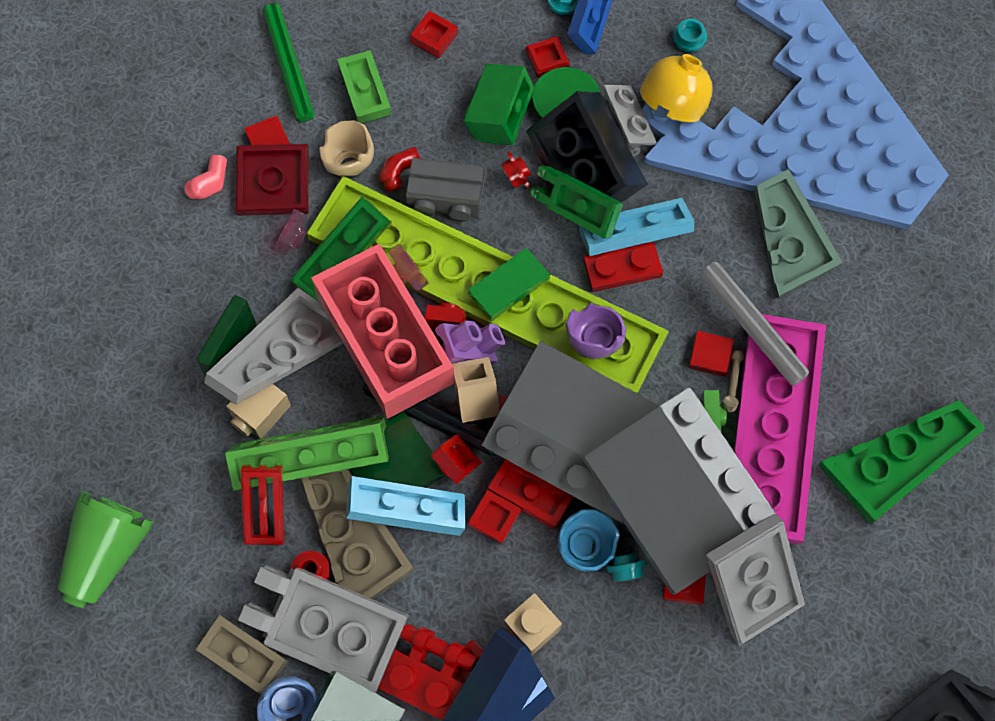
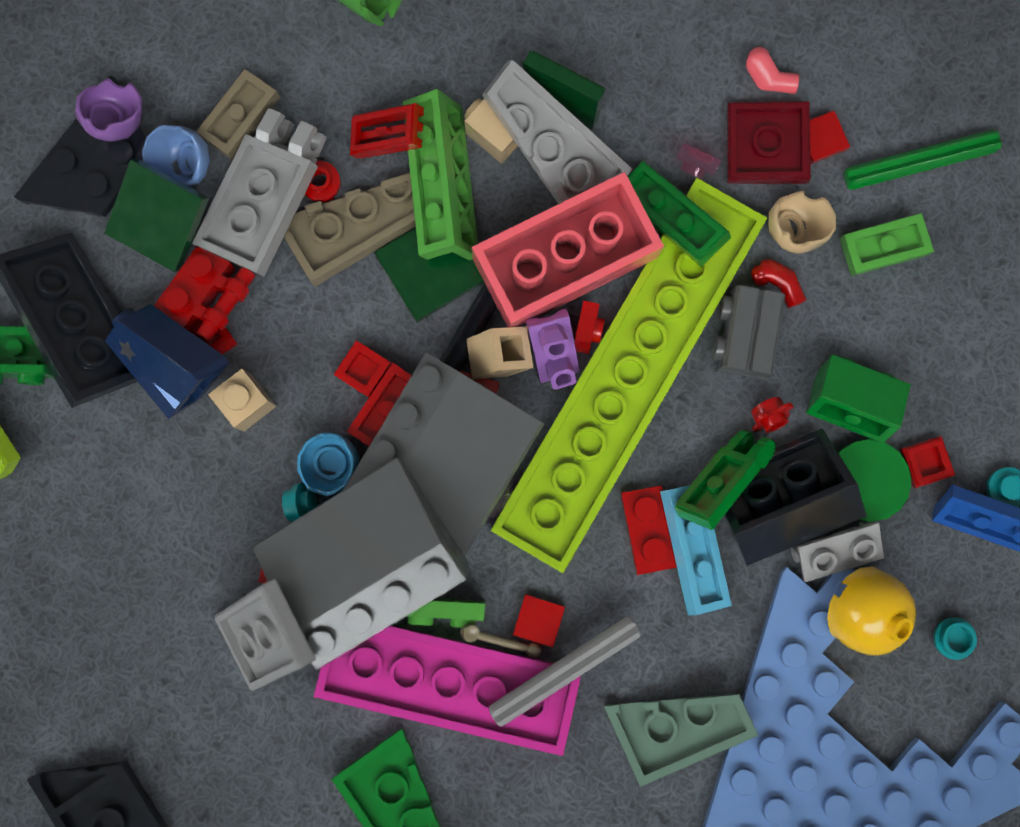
camera: 90 degrees right, 15 degrees up
(405, 506) = (374, 275): medium azure plate -> none
(407, 268) = (642, 282): plate -> none
(434, 34) = (957, 328): red plate -> none
(456, 459) = (426, 330): red plate -> none
(508, 284) = (623, 396): green tile -> none
(595, 331) = (557, 487): medium lavender hair -> none

